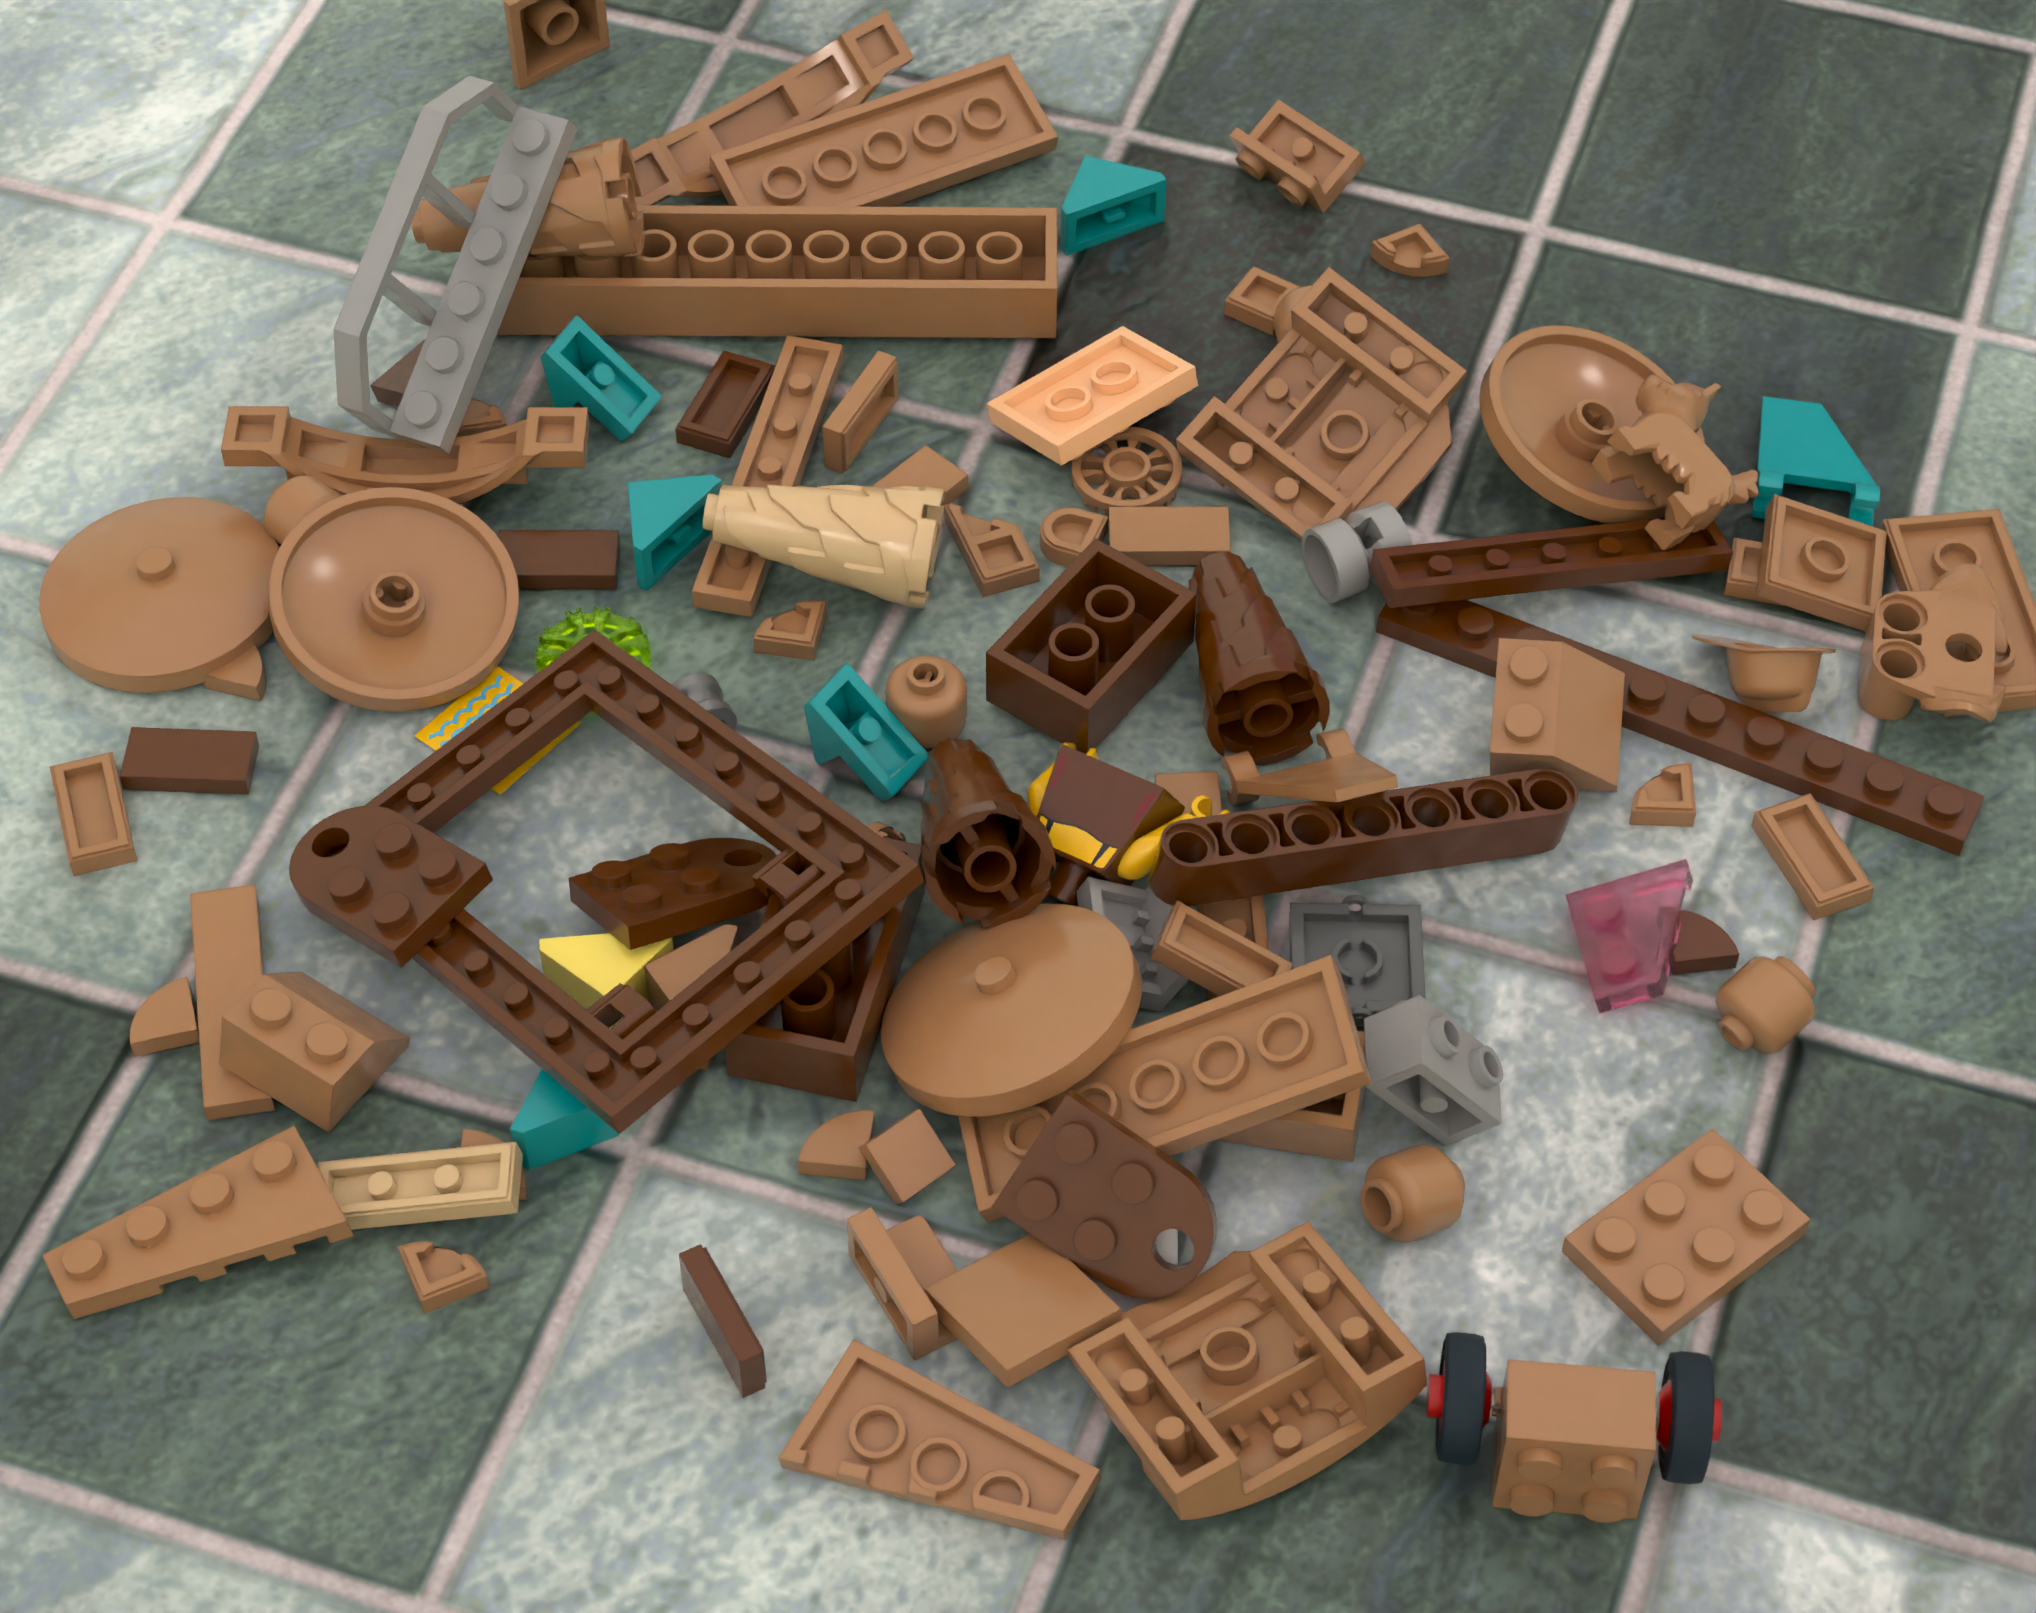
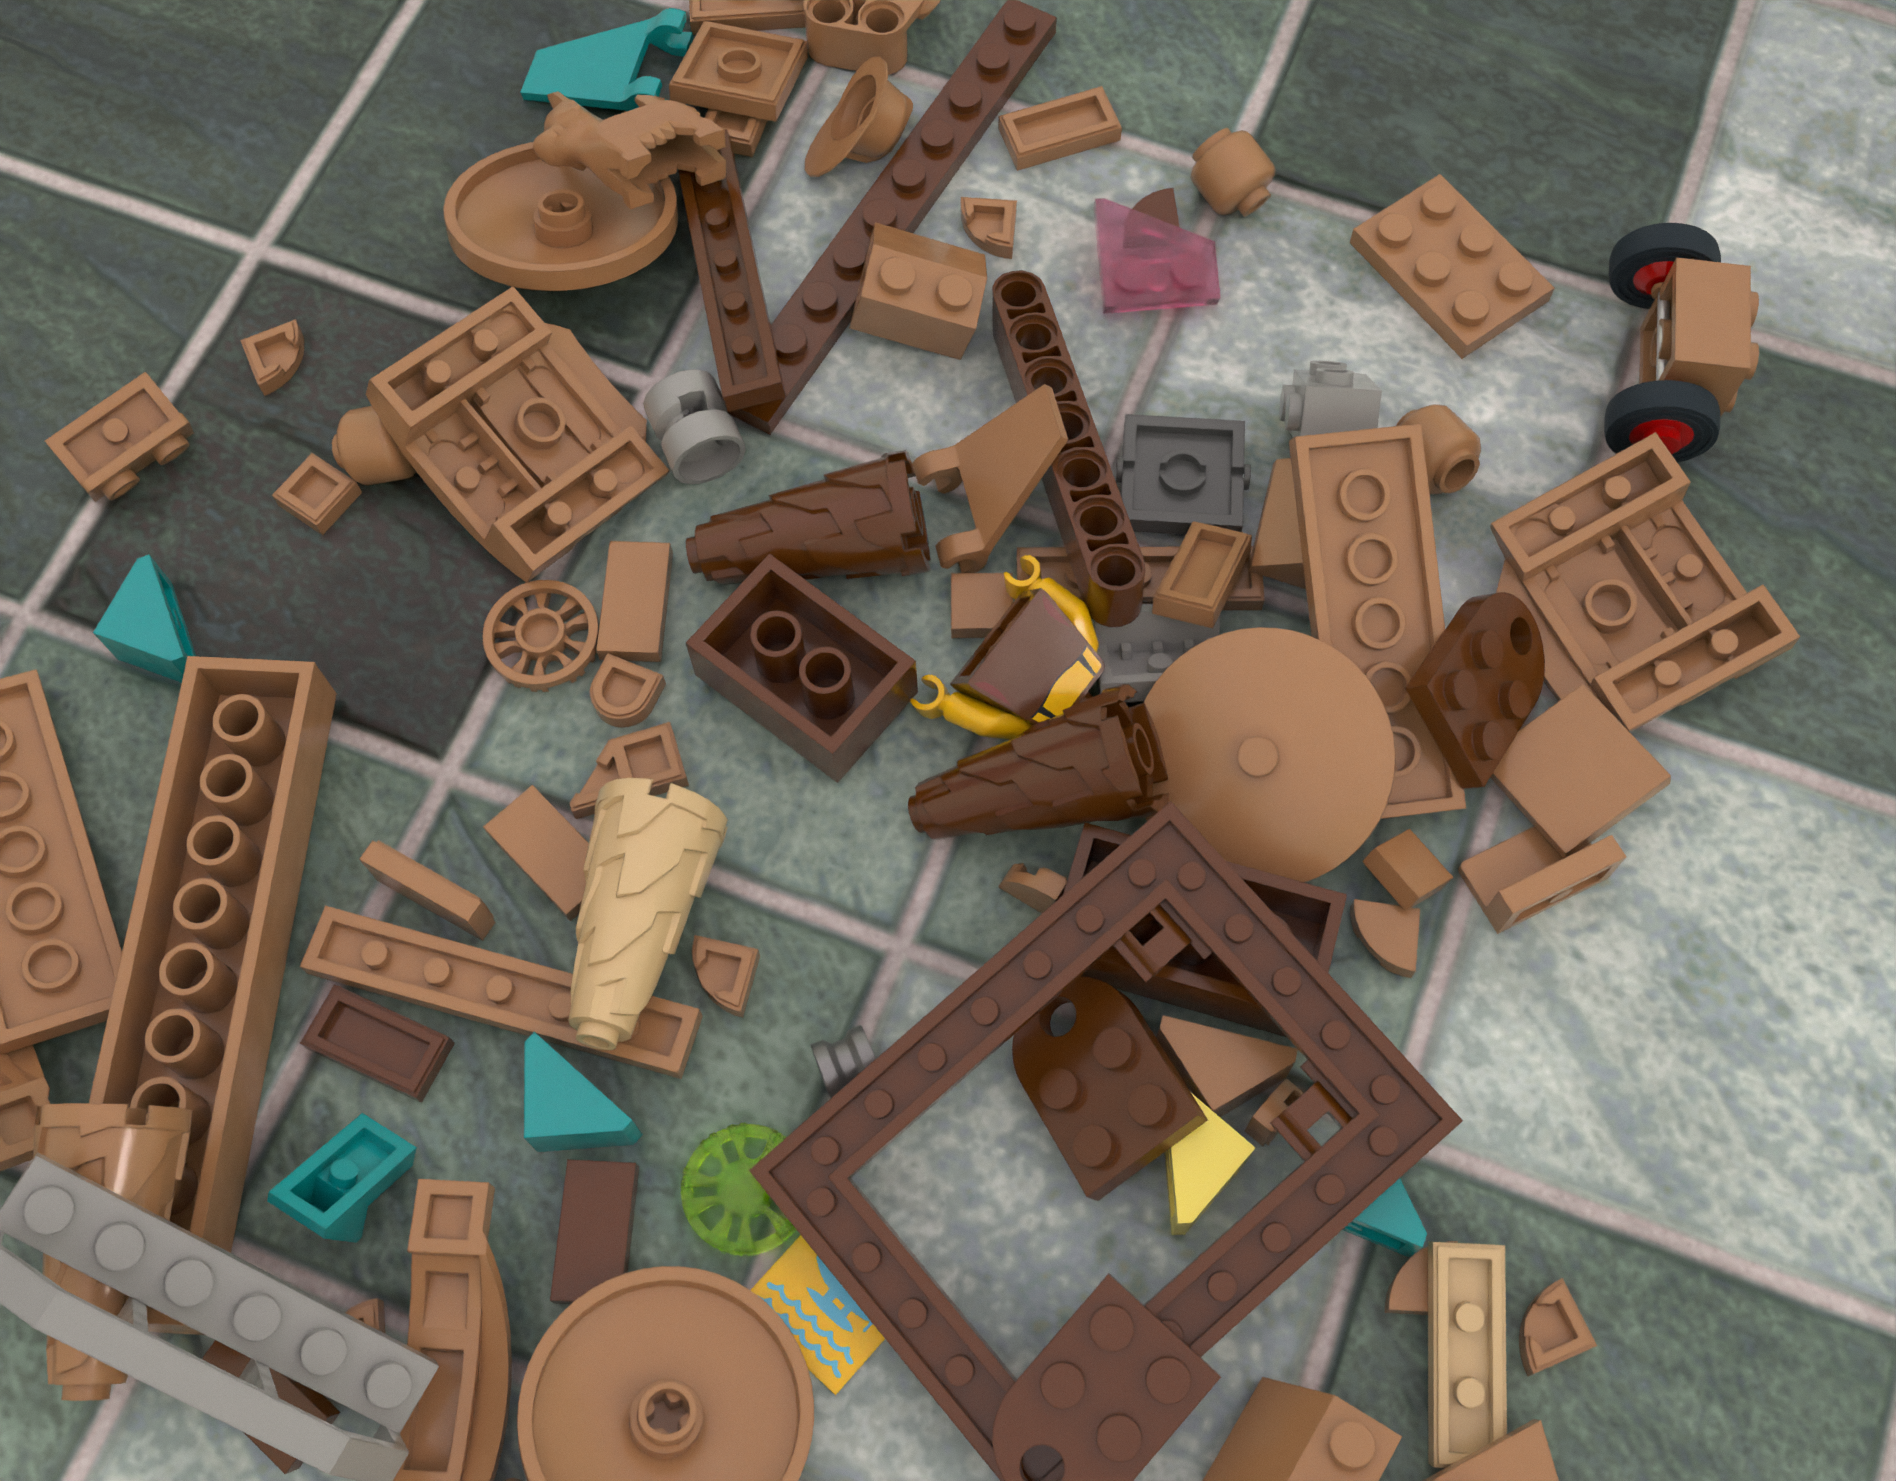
camera: 85 degrees left, 15 degrees up
(723, 1320) = (1606, 1040): reddish brown tile -> none
(855, 724) = (902, 891): teal slope -> none
(926, 1444) = (1711, 868): medium nougat wing -> none
(928, 699) = (858, 830): medium nougat head -> none
(1092, 395) = (443, 654): light nougat plate -> none

